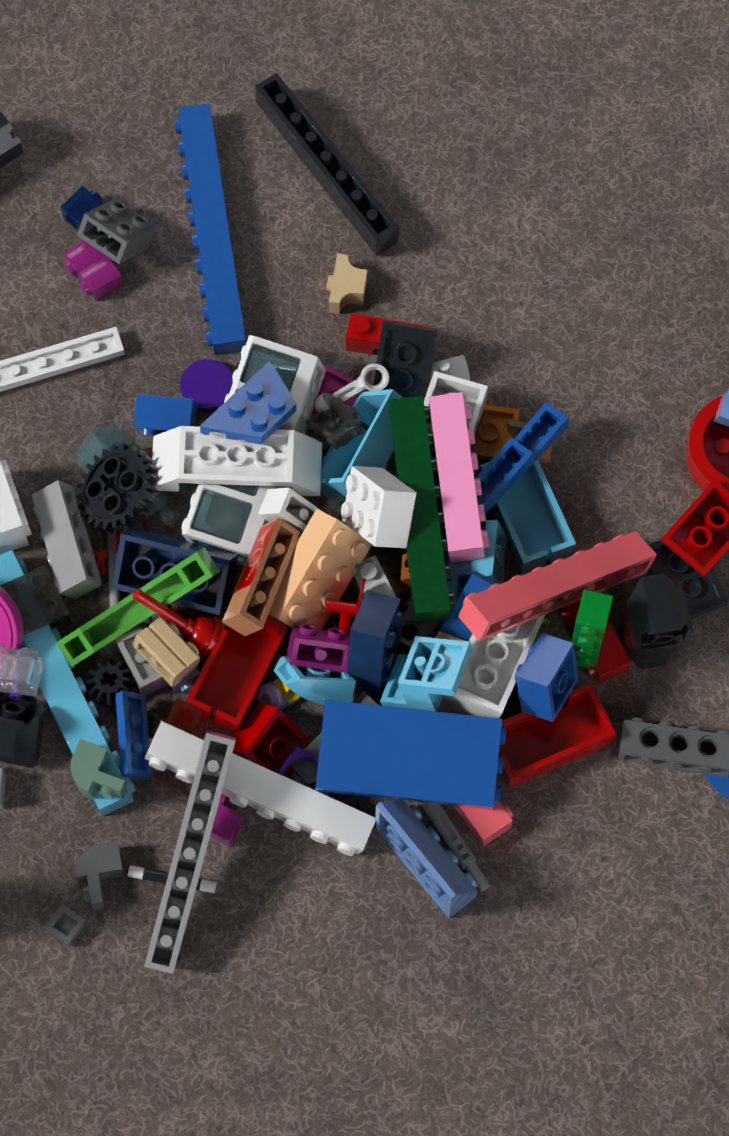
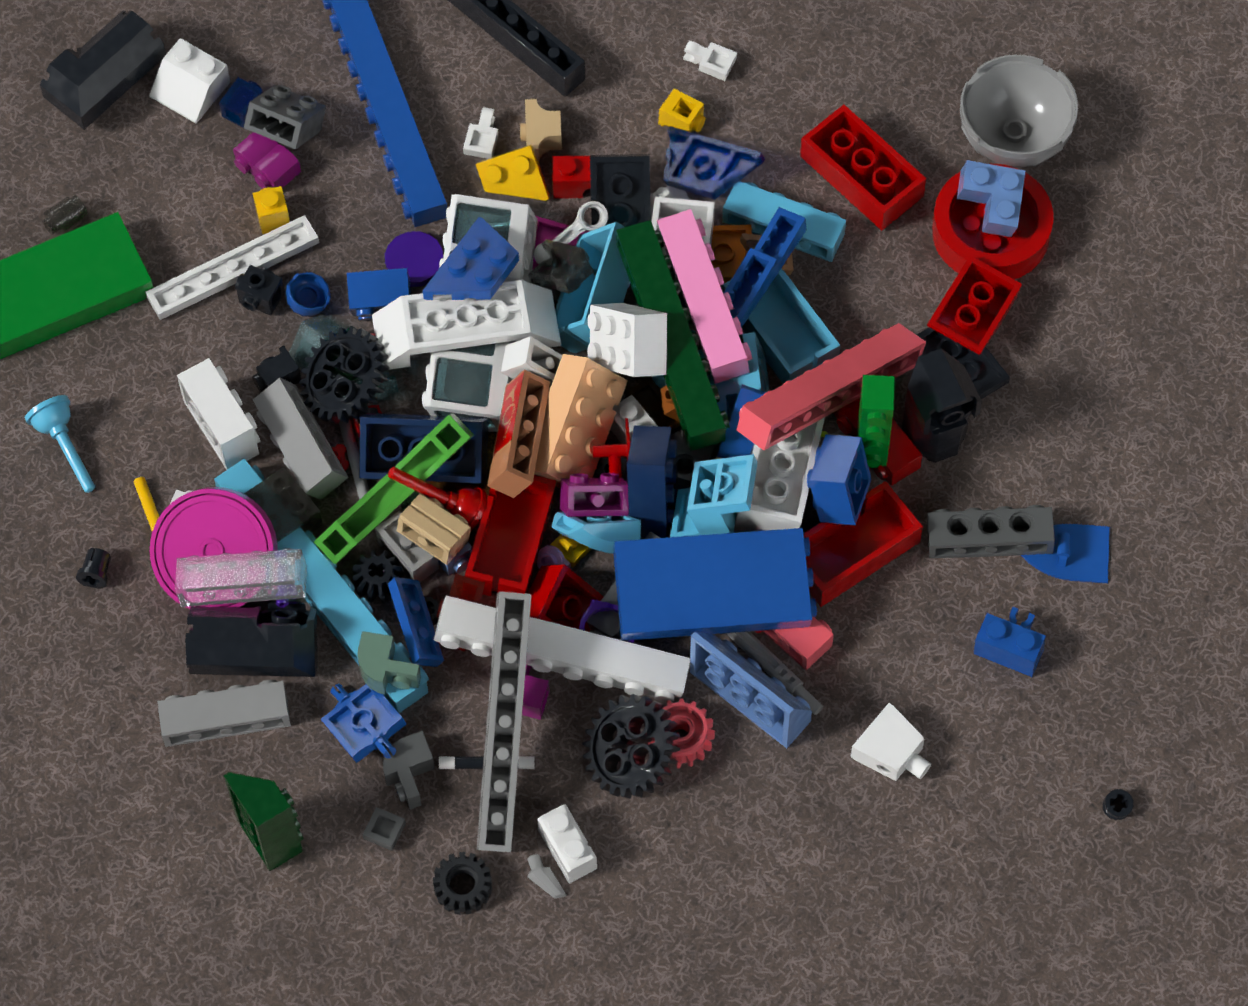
camera: 10 degrees left, 5 degrees down
(39, 180) = (189, 80): none -> white slope
(59, 469) = (276, 367): none -> black brick
(60, 390) = (259, 289): none -> black brick
(67, 821) = (363, 722): none -> blue plate
(86, 315) = (271, 208): none -> yellow brick
(100, 398) = (304, 290): none -> blue hair
(112, 979) = (456, 866): none -> black tyre
(201, 999) = (544, 877): none -> light grey bar
(227, 973) = (567, 843): none -> white brick
(292, 281) = (482, 138): none -> white plate
(302, 920) = (633, 774): none -> black gear
(313, 322) = (514, 174): none -> yellow wing
(353, 870) = (698, 728): none -> coral gear
(475, 284) = (682, 112): none -> yellow brick
(490, 345) = (706, 164): none -> clear blue wing
(519, 245) = (713, 61): none -> white plate
(526, 393) = (755, 206): none -> medium azure brick
(544, 937) = (891, 746): none -> white torso
(634, 374) = (862, 167): none -> red brick
(675, 859) = (1010, 643): none -> blue brick

